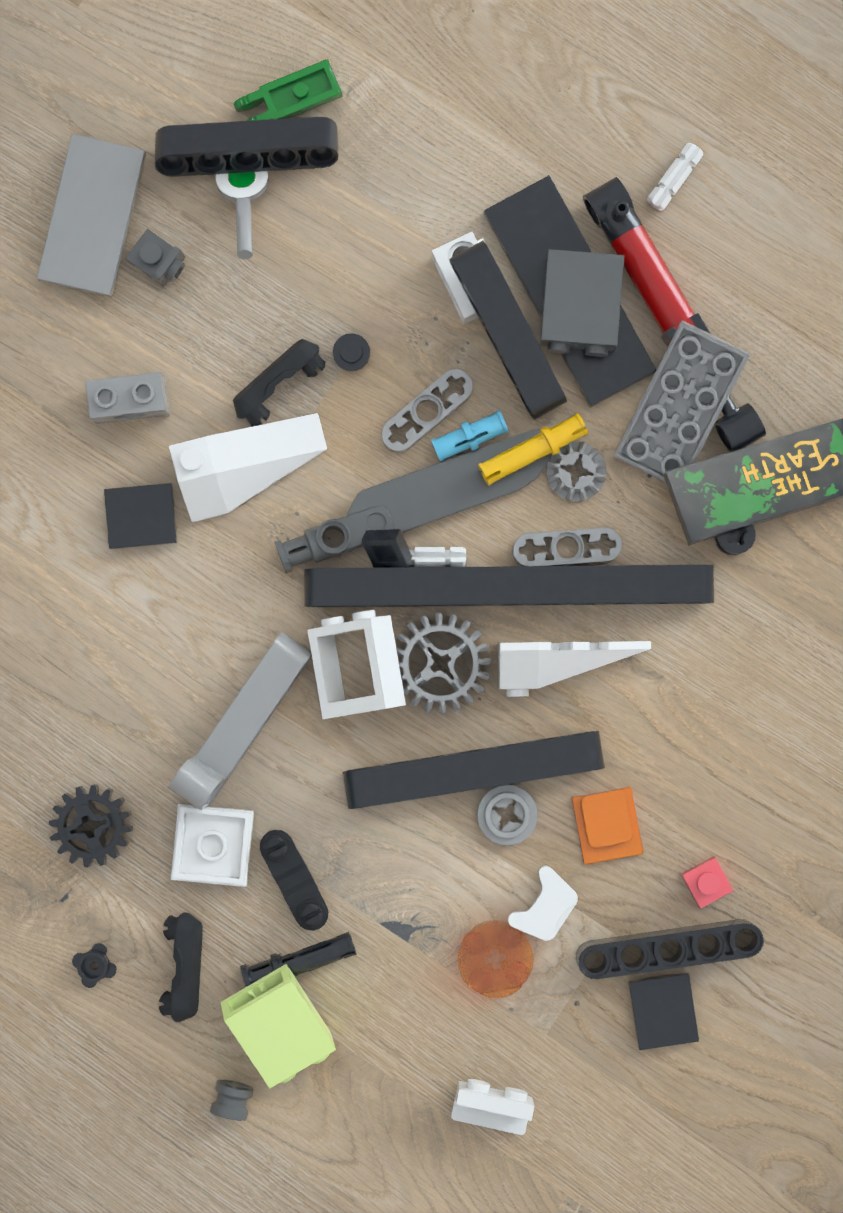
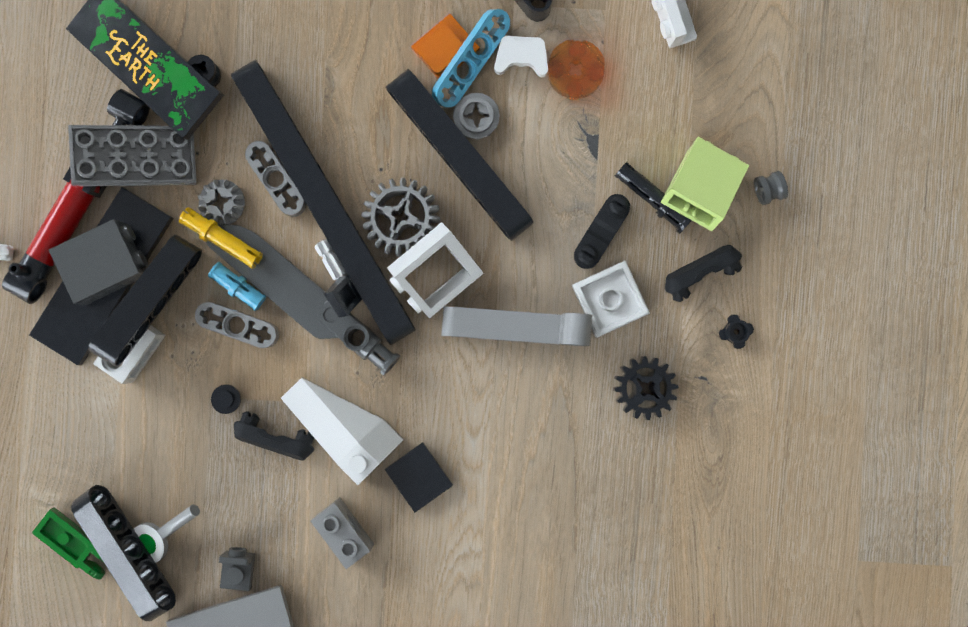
camera: 120 degrees left, 0 degrees up
(543, 663) = (361, 147): white wedge -> none
(582, 844) = (474, 61): none -> medium azure beam

